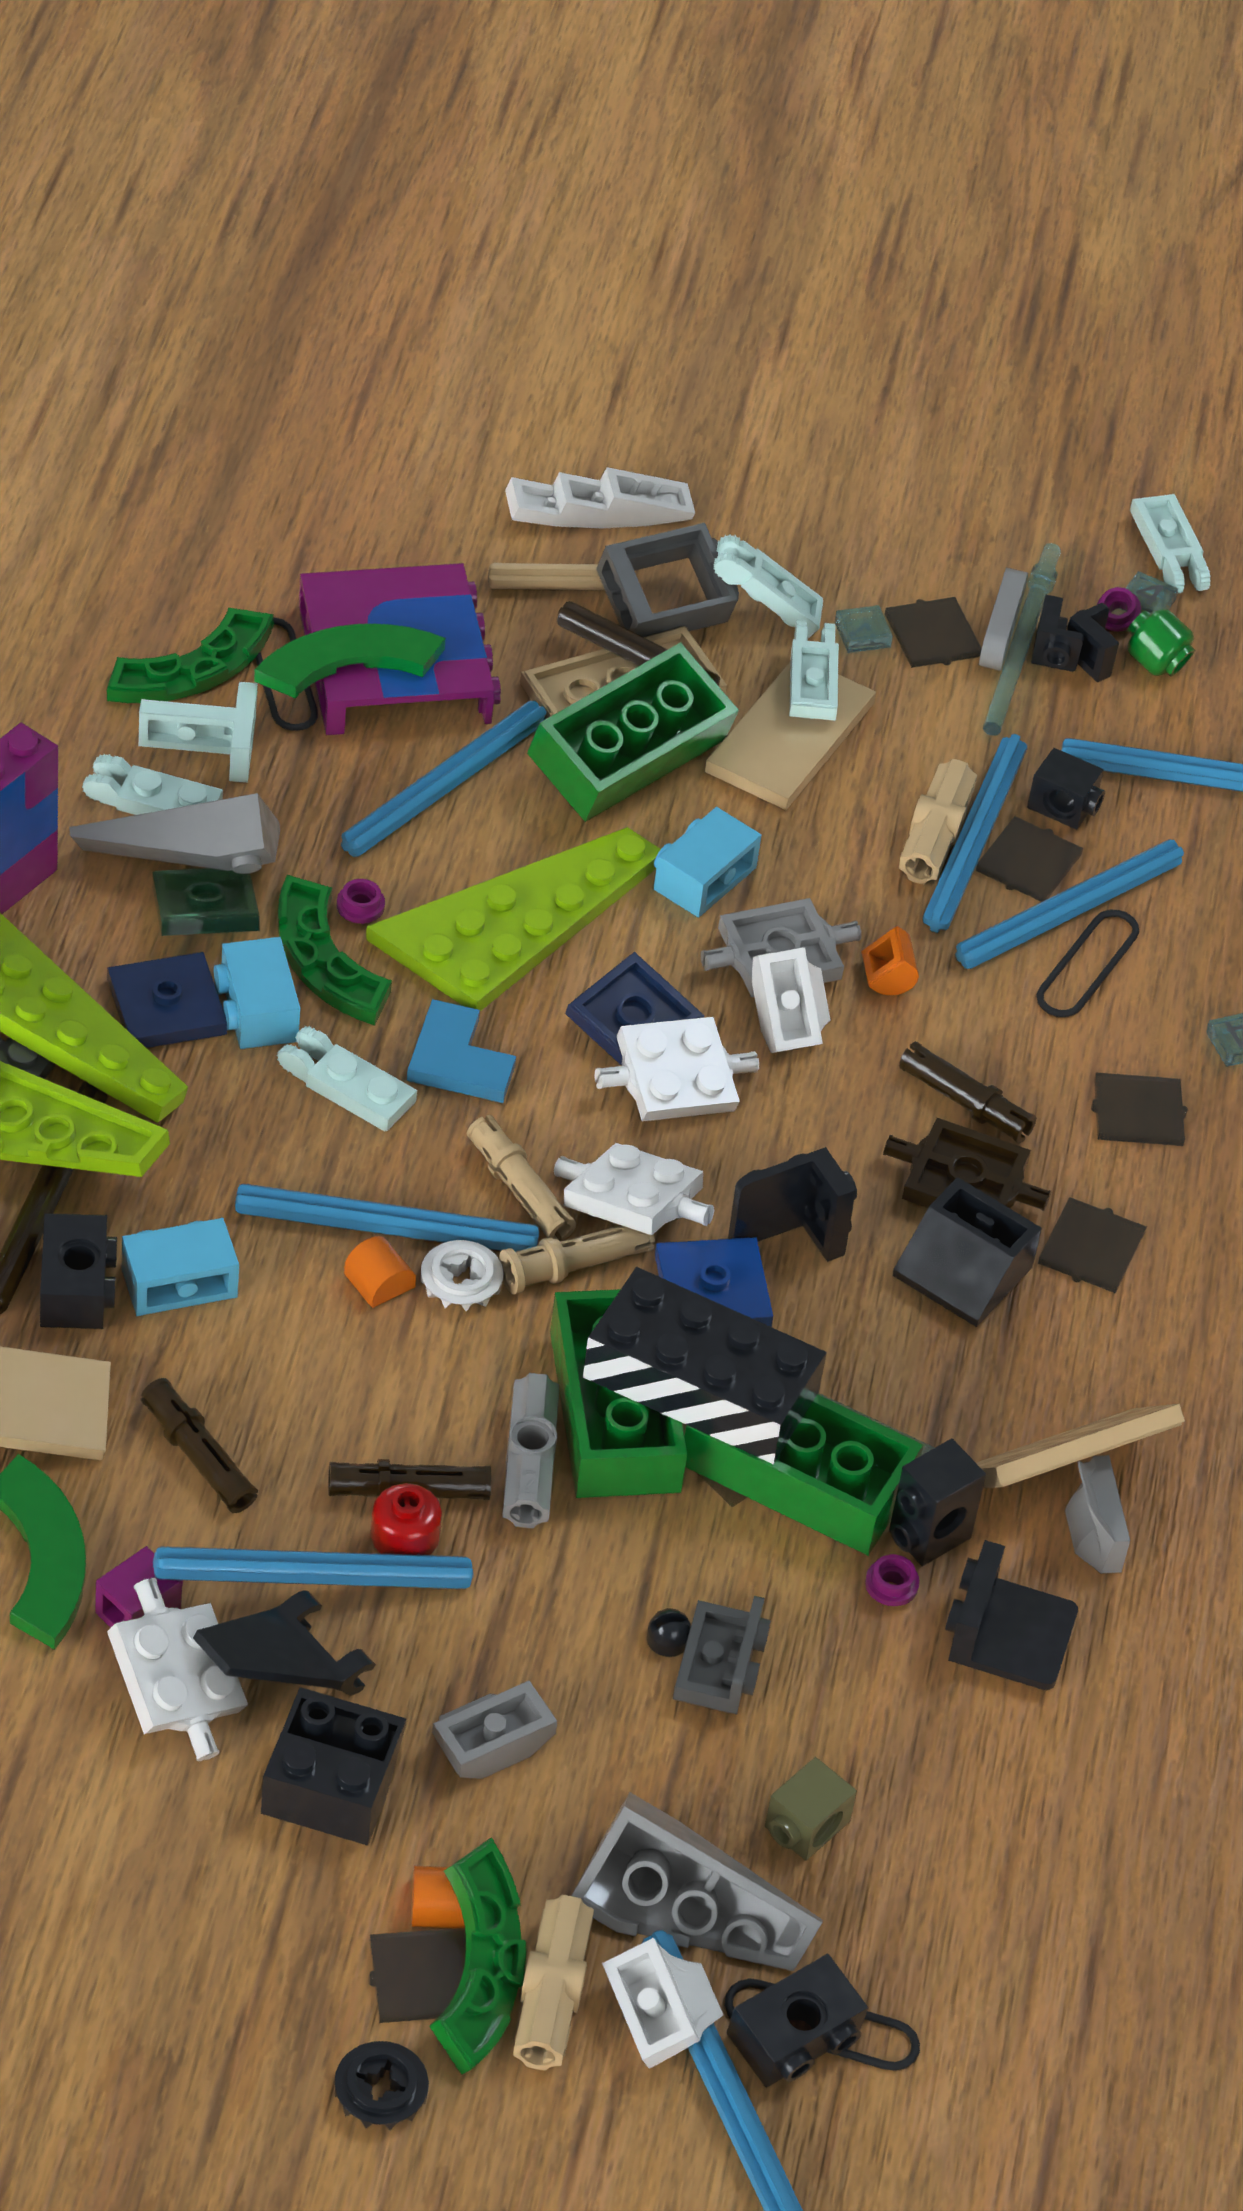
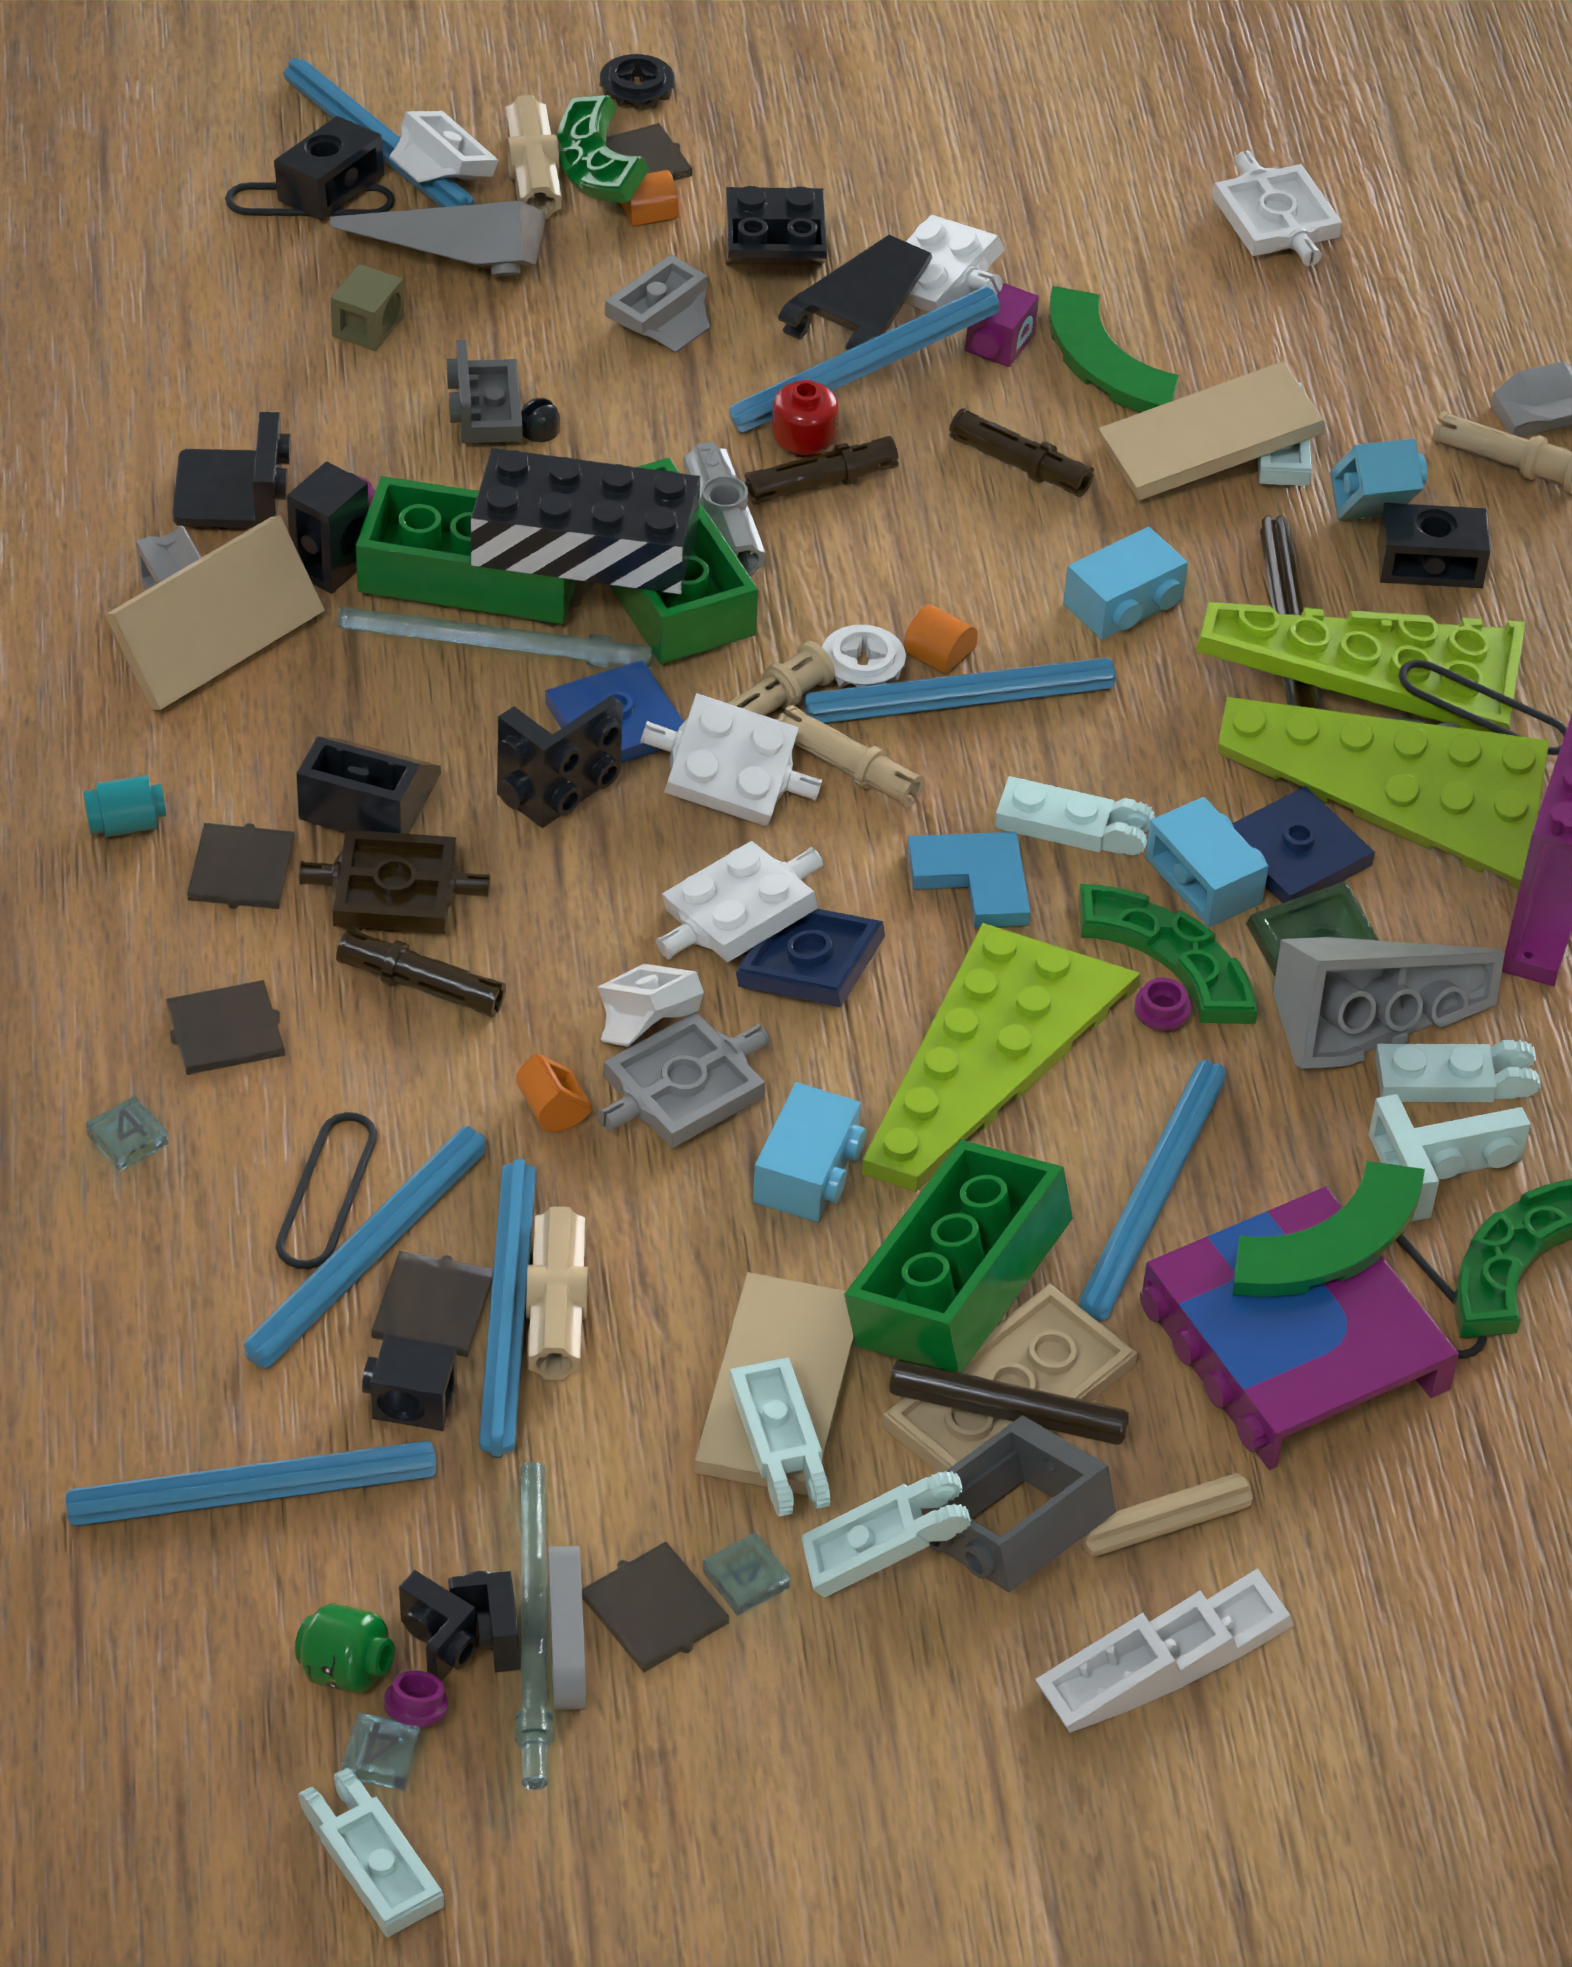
camera: 165 degrees right, 0 degrees up
(74, 1271) = (1220, 553): black brick -> none
(1189, 1303) = (124, 806): none -> teal brick

